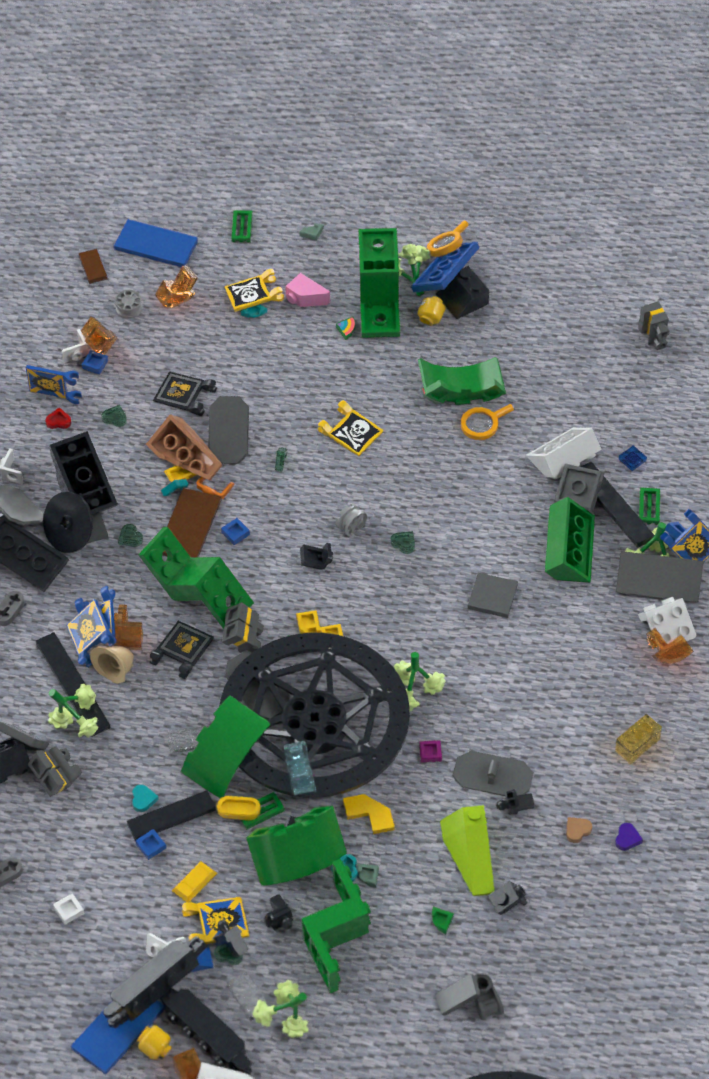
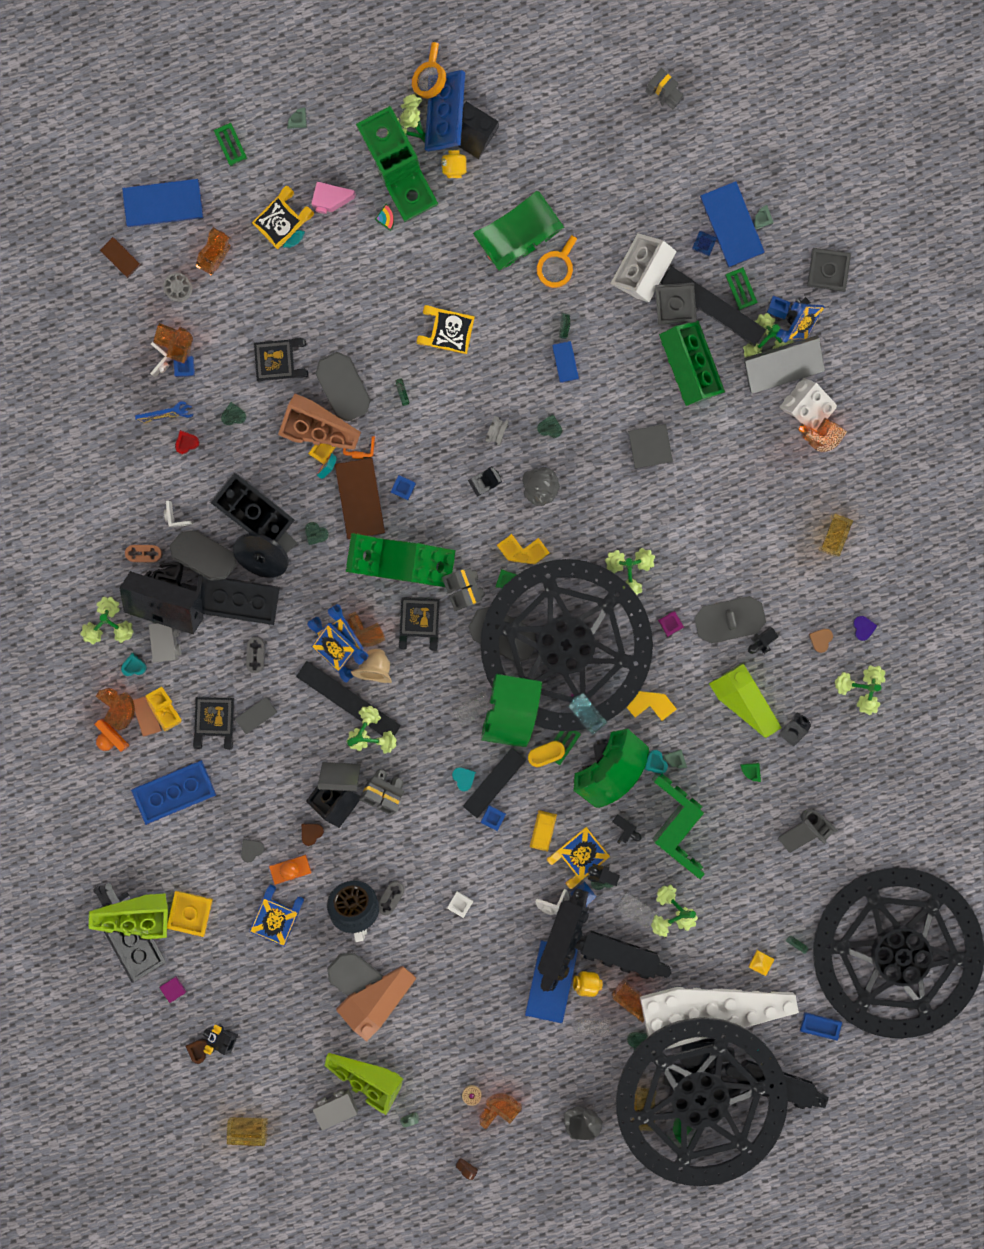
camera: 25 degrees left, 35 degrees up
(367, 581) = (540, 486): none -> dark grey hair
(448, 496) = (565, 362): none -> blue tile
(463, 466) = (564, 326): none -> clear green tile
(611, 878) = (874, 677): none -> yellowish green plant
(667, 454) = (732, 224): none -> blue tile
(699, 461) = (763, 218): none -> sand green tile

